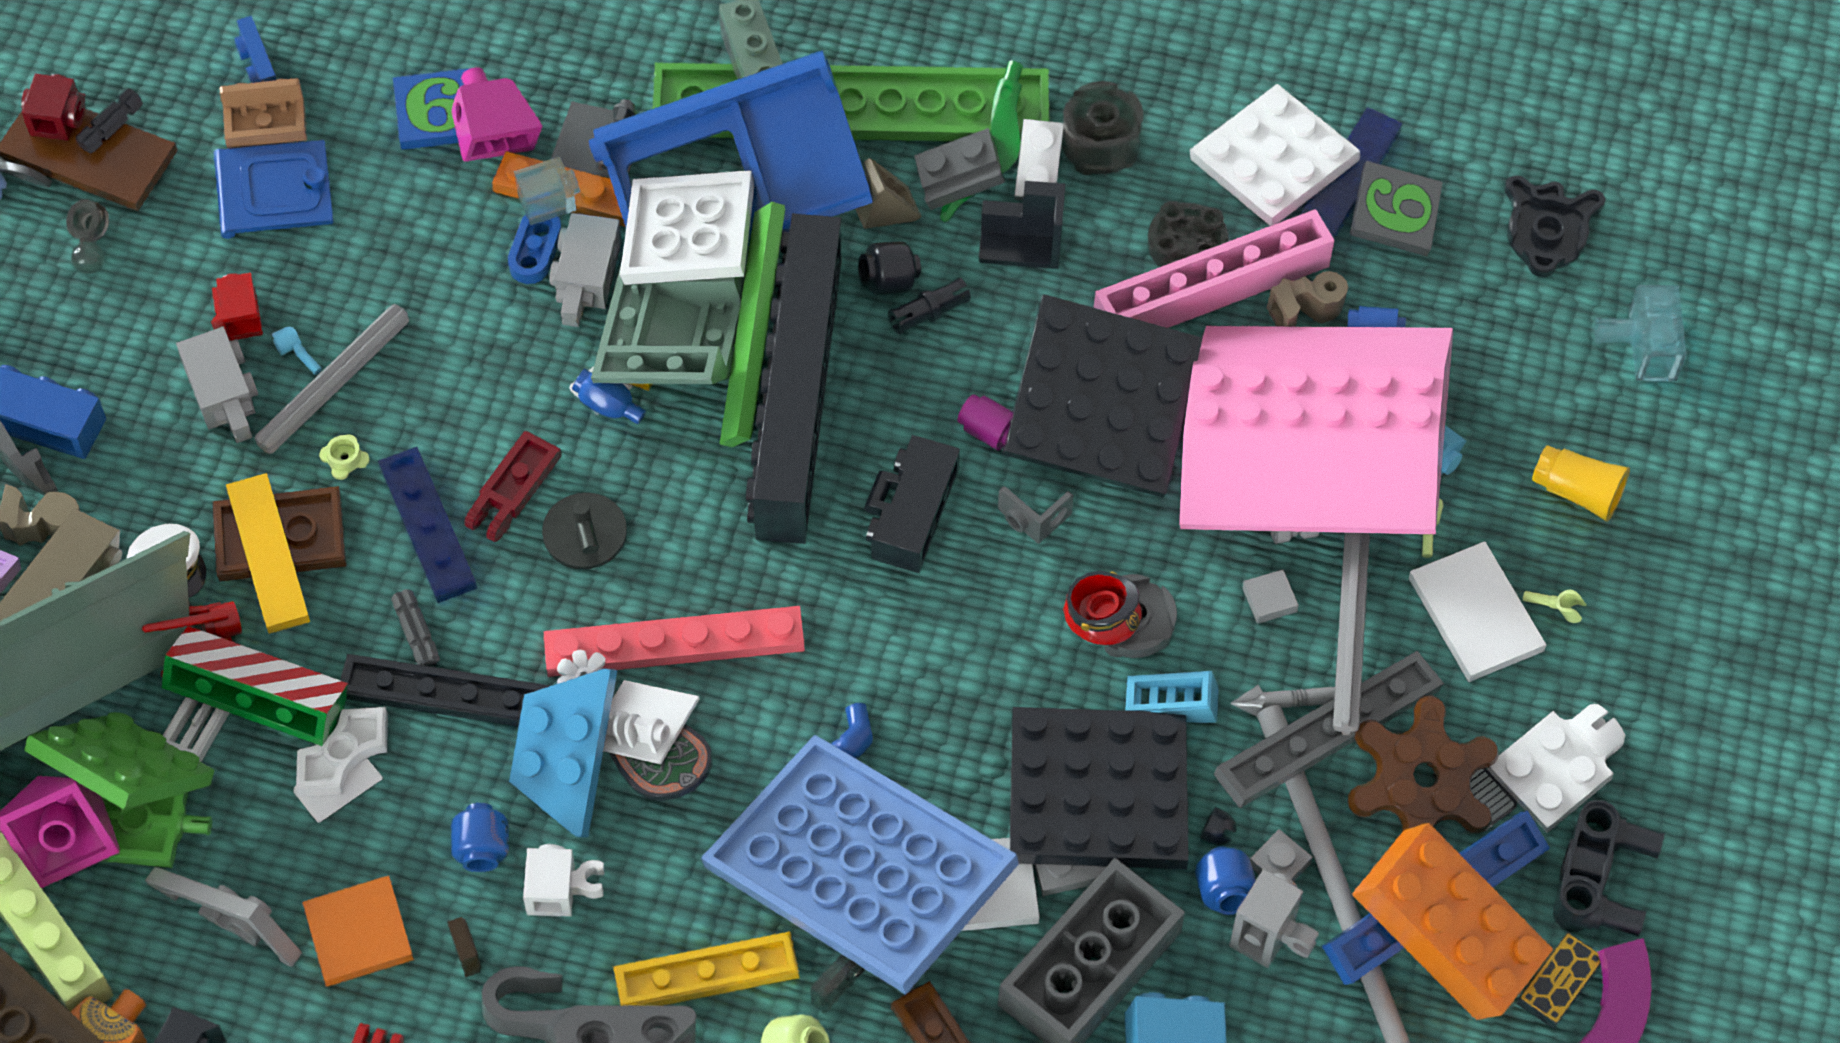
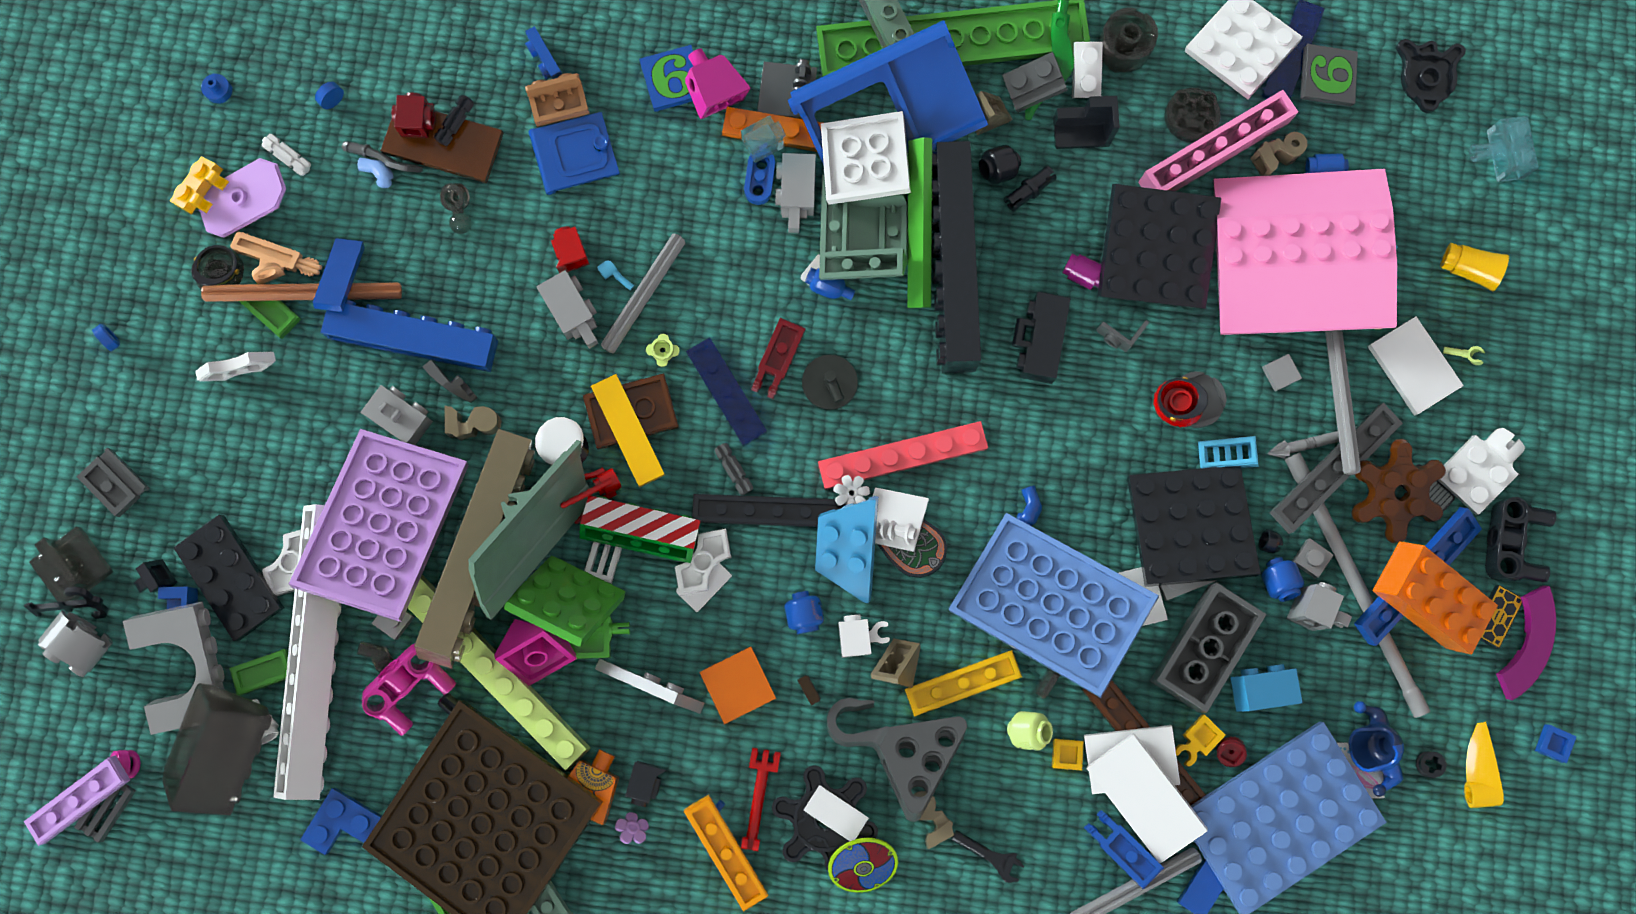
camera: 10 degrees left, 20 degrees up
(606, 928) = (898, 663): none -> dark tan slope

